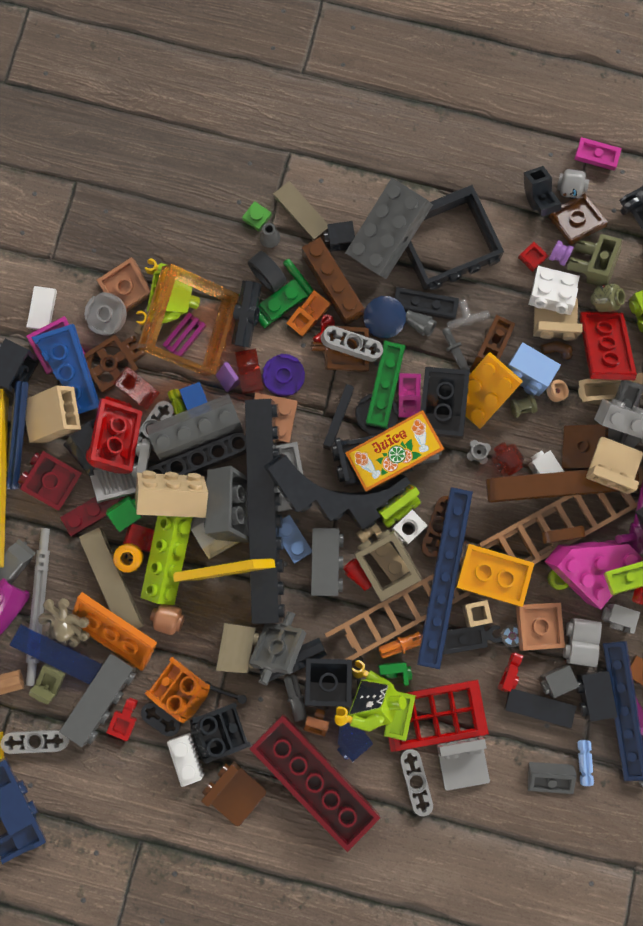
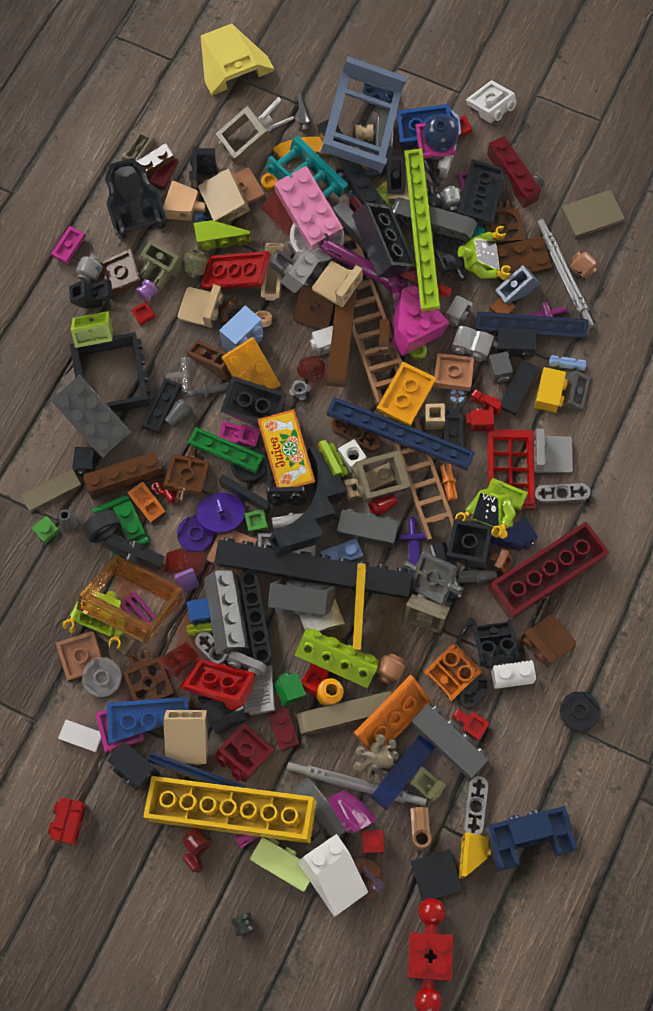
camera: 75 degrees left, 10 degrees down
(160, 842) = (579, 711): none -> black tile
(171, 494) = (283, 639): tan brick -> none
(310, 436) = (256, 521): none -> bright green plate
(311, 396) = (220, 513): none -> dark purple shield
(318, 475) = (282, 521): none -> white pin
(325, 616) = (413, 541): none -> dark purple sword
(365, 354) = (185, 459): light grey beam -> none
(384, 317) = (166, 439): dark blue dish -> none
(391, 670) = (468, 489): green bracket -> none
(487, 668) = (480, 419): none -> red brick
(497, 210) = (91, 332): none -> lime window
(523, 406) = (269, 346): olive bush -> none
(544, 747) = (550, 390): none -> yellow brick
(554, 290) = (177, 302): white plate -> none

